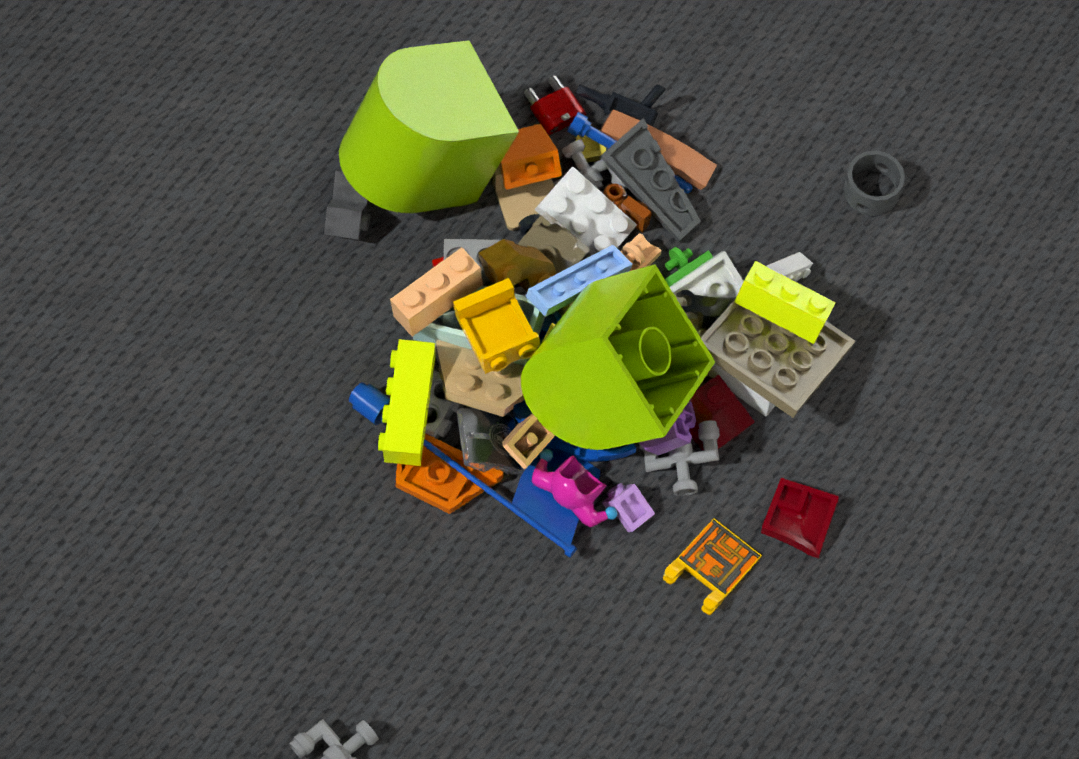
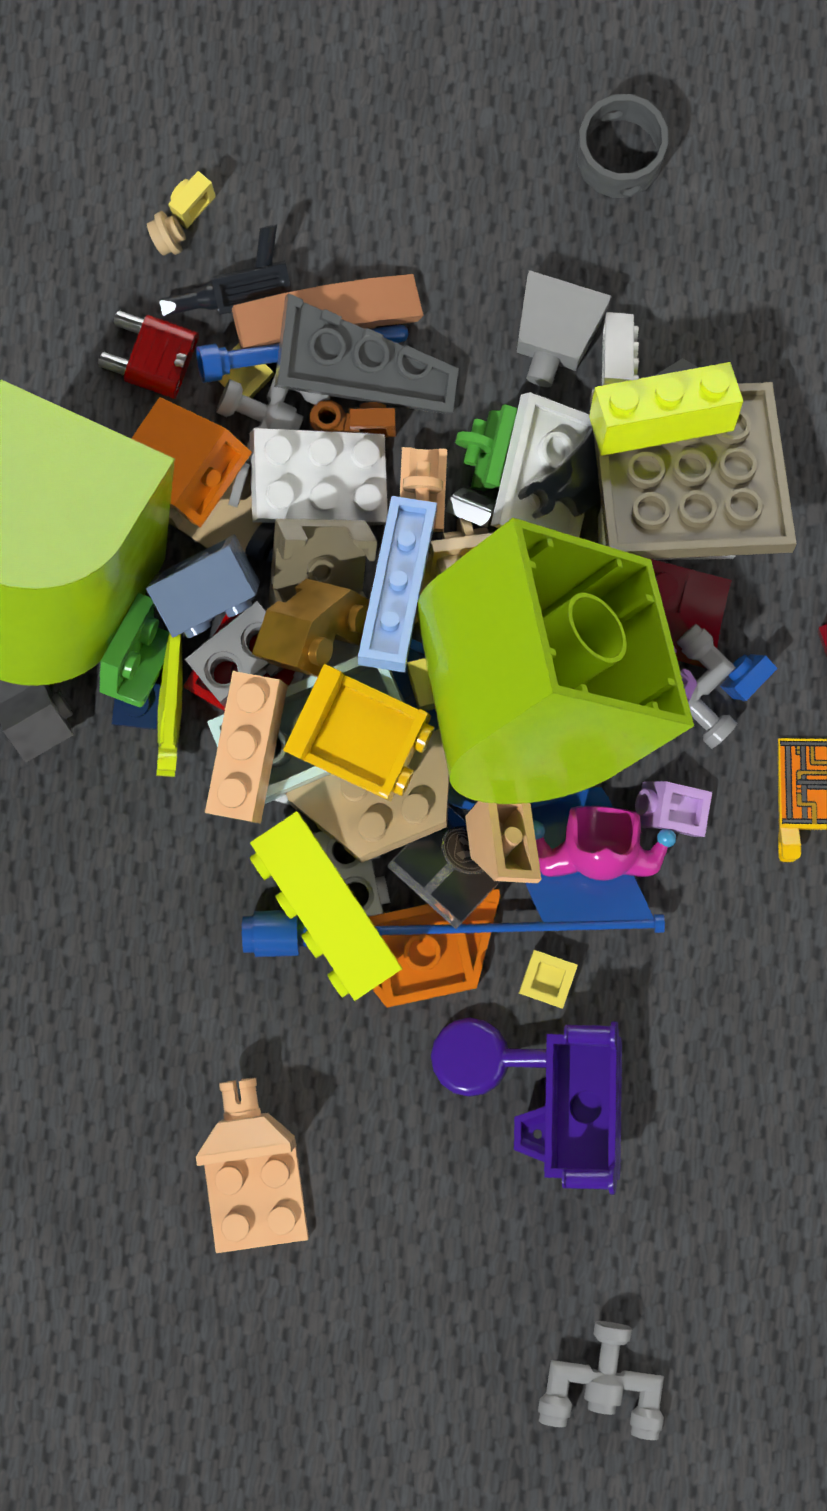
camera: 30 degrees left, 20 degrees up
(255, 507) = (252, 1175): none -> light nougat plate
(402, 254) = (138, 717): none -> dark blue plate
(417, 264) = (170, 707): none -> neon yellow piece
(422, 223) = (134, 655): none -> bright green bracket
(456, 598) = (582, 1094): none -> dark purple piece
(483, 216) = (204, 587): none -> sand blue brick
(489, 536) = (548, 979): none -> light yellow plate
(542, 189) = (239, 485): none -> light grey piece
(610, 59) = (166, 233): none -> tan plate
(636, 53) = (191, 198): none -> light yellow plate
(722, 471) = (748, 676): none -> blue plate
(768, 238) = (557, 325): none -> light grey torso

